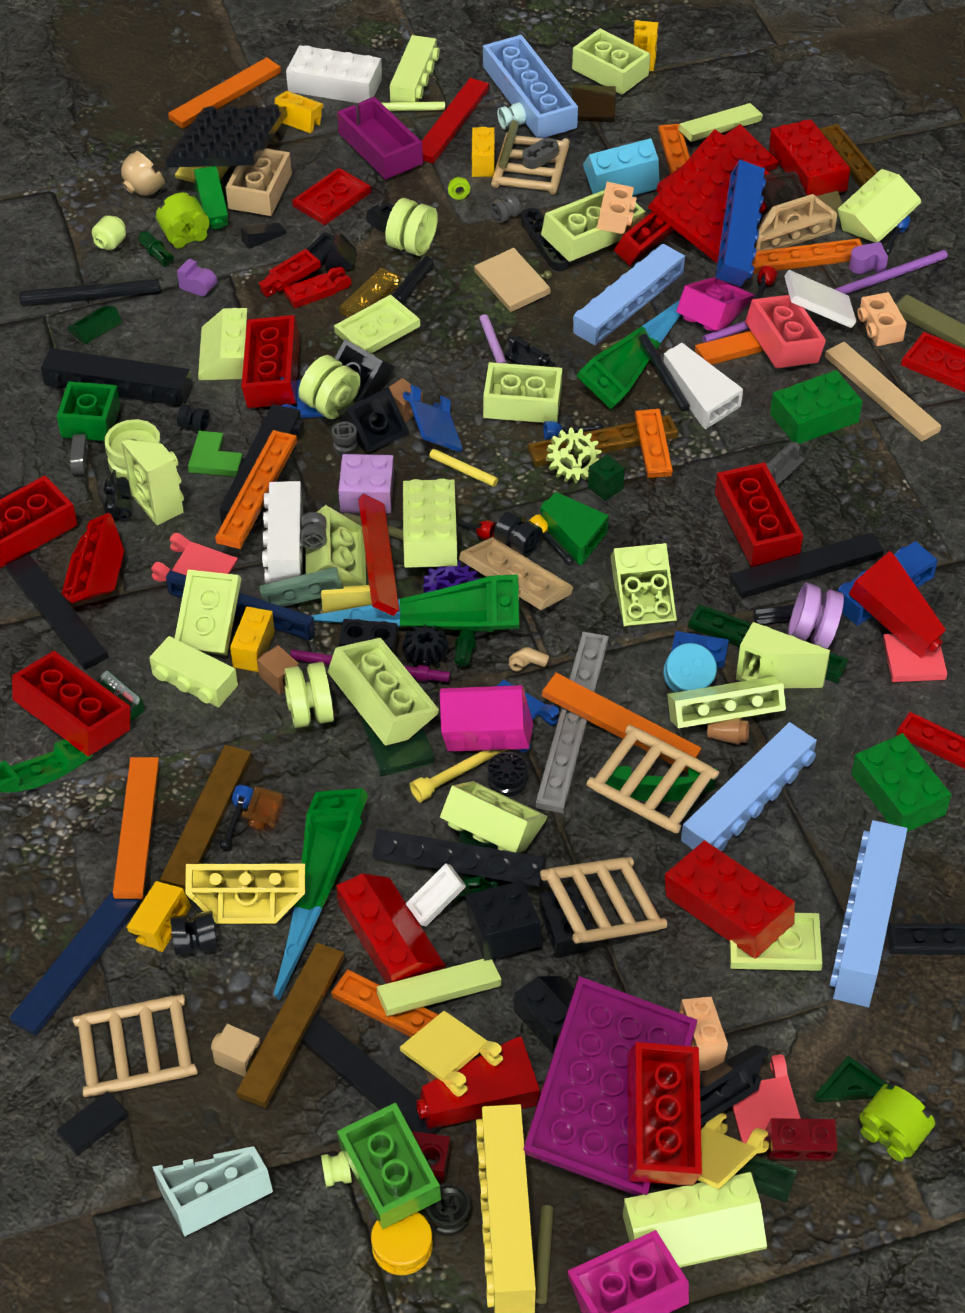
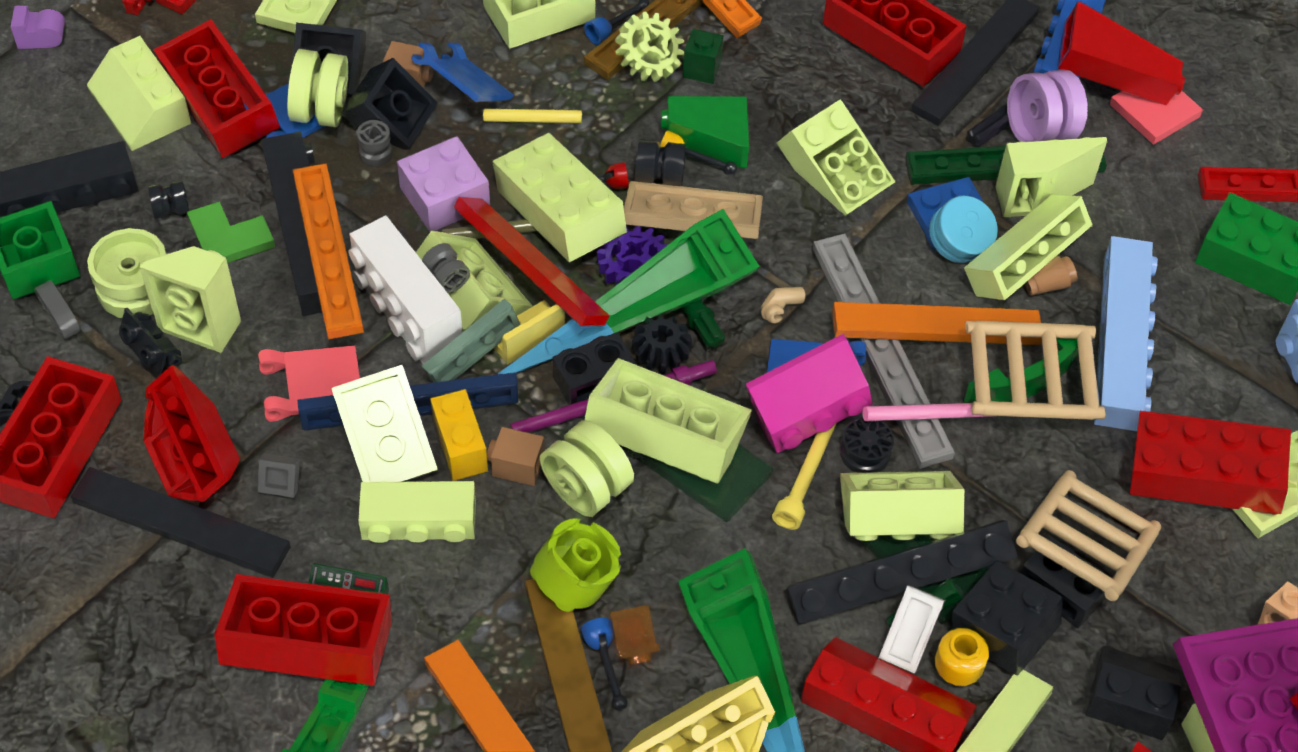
camera: 35 degrees left, 5 degrees up
(130, 610) = (278, 475): none -> dark grey tile
(255, 746) = (576, 564): none -> lime brick
(453, 928) = (961, 656): none -> yellow head
(552, 767) = (925, 411): none -> bright pink bar

